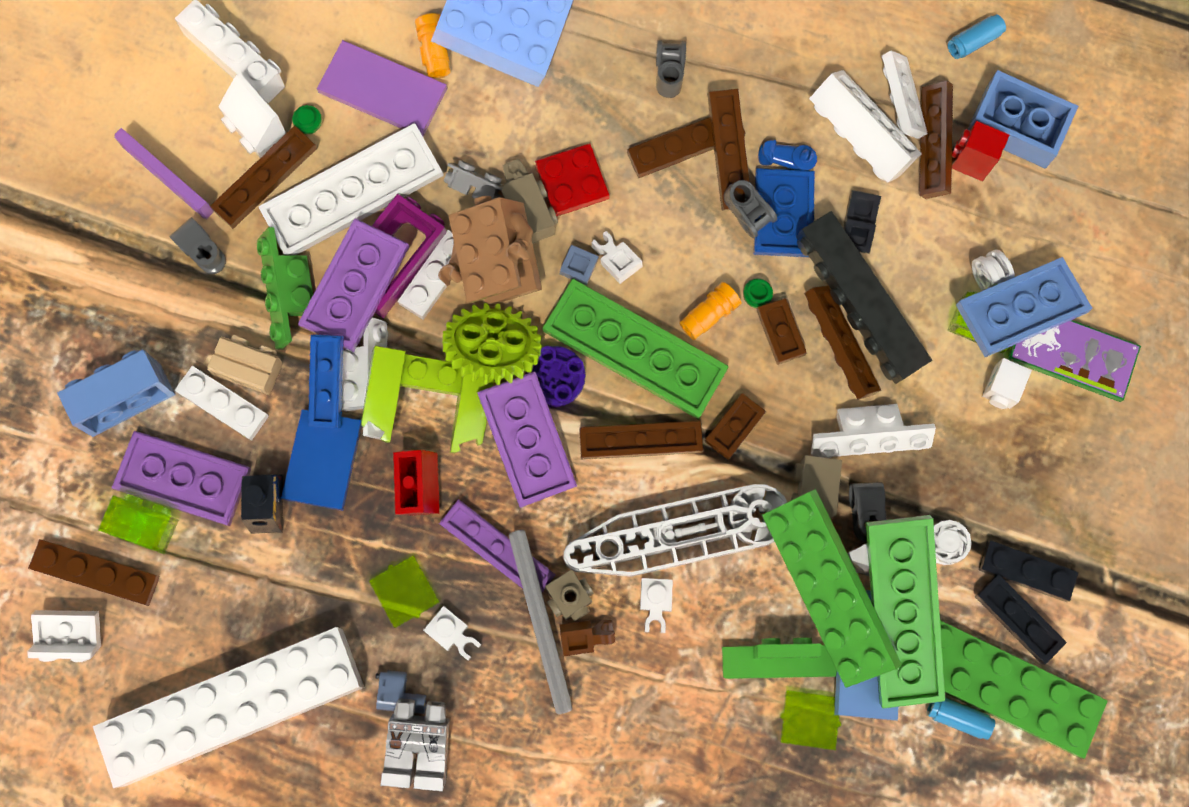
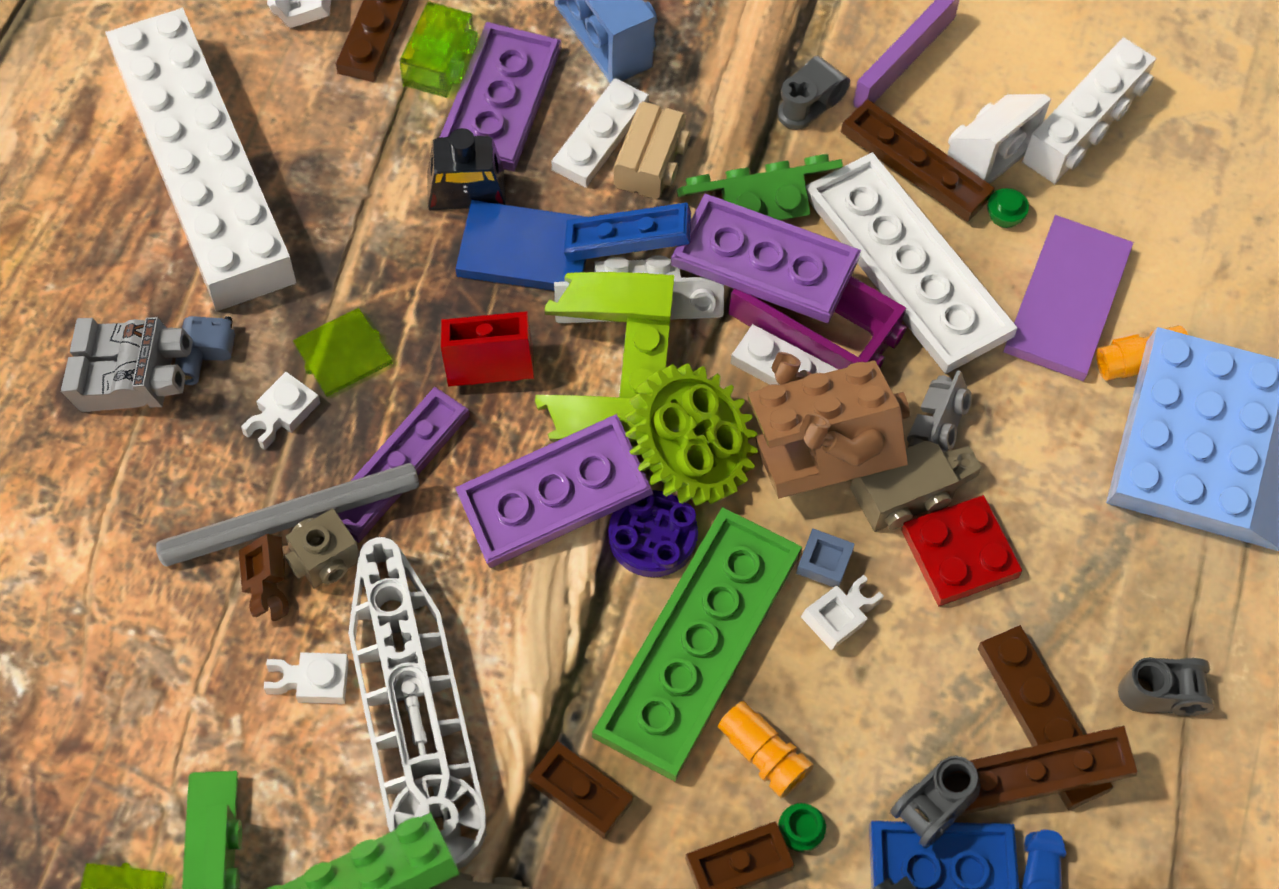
camera: 90 degrees right, 15 degrees down
(641, 440) = (556, 652): reddish brown plate -> none

